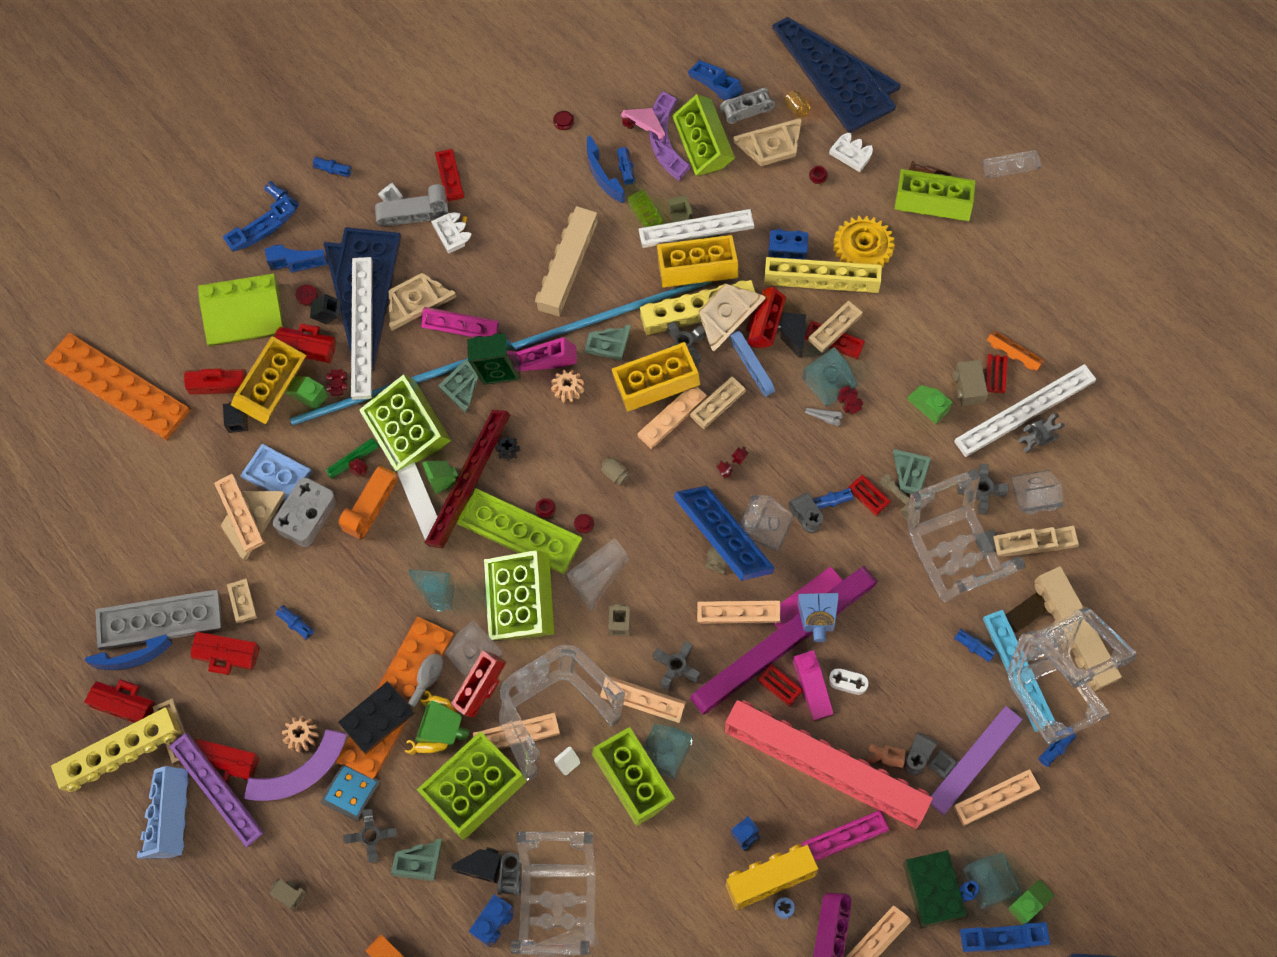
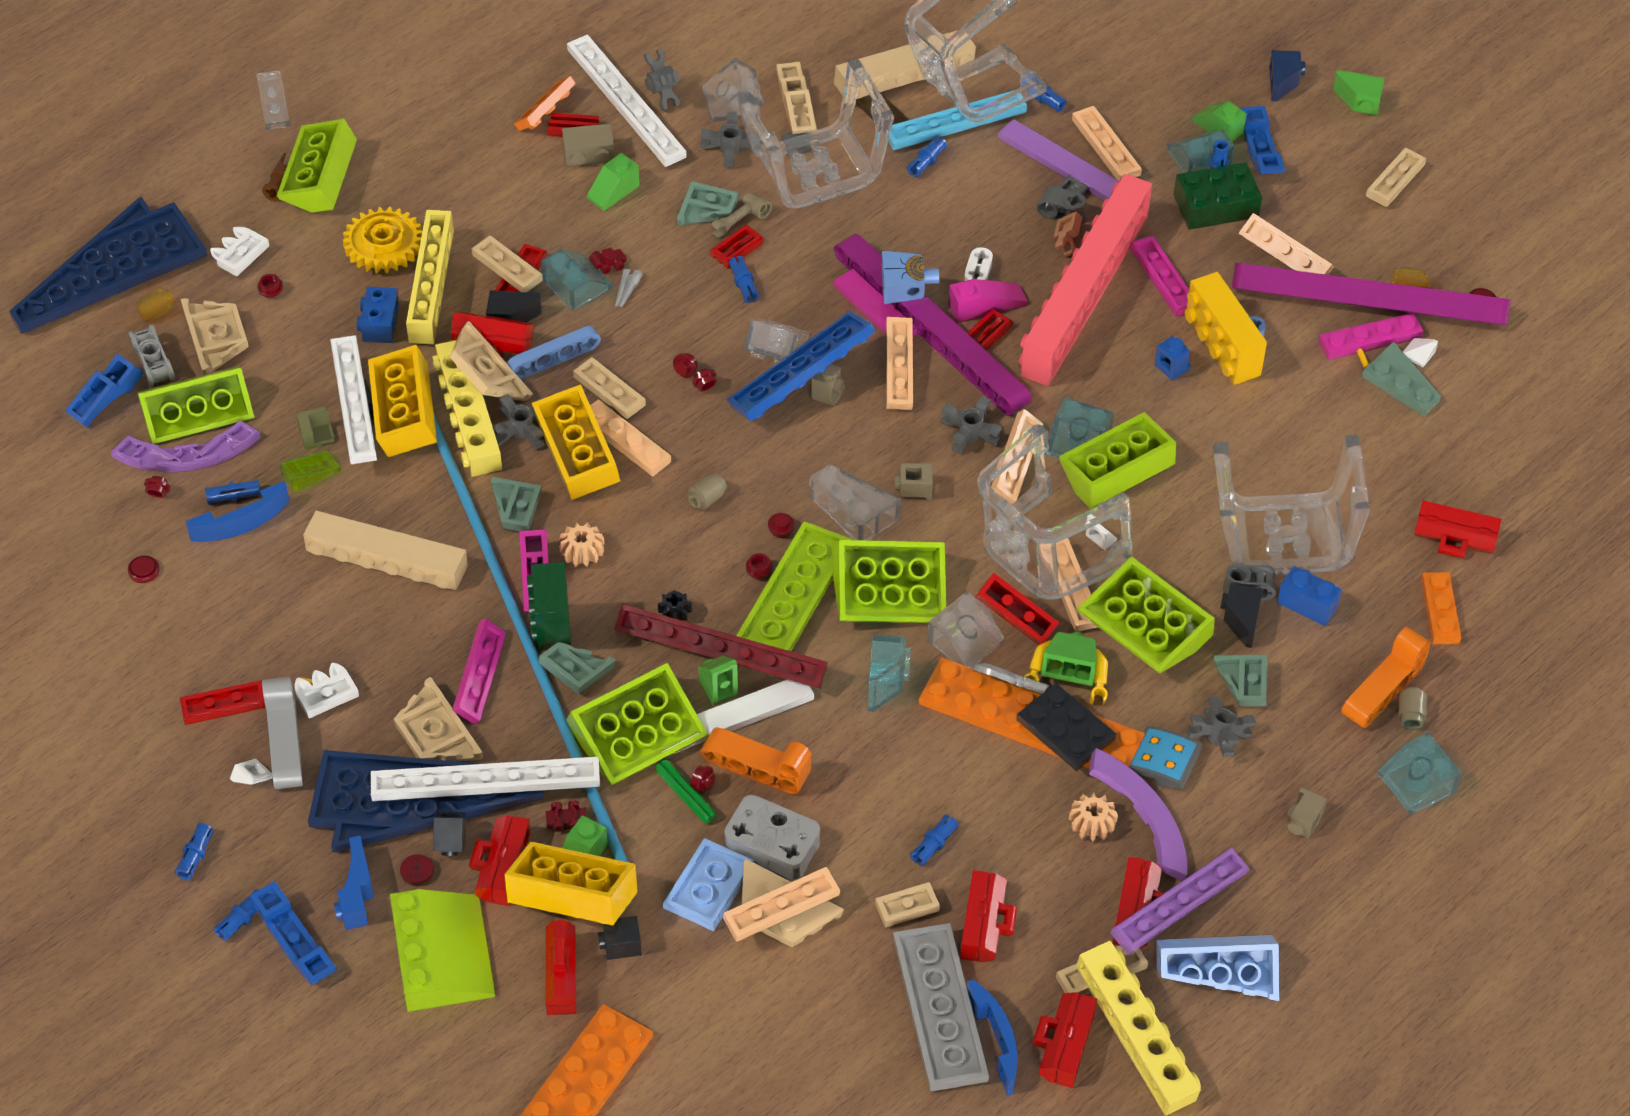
camera: 95 degrees left, 15 degrees down
(645, 119) = (167, 460): bright pink tile -> none
(804, 509) = (762, 300): dark grey piece -> none

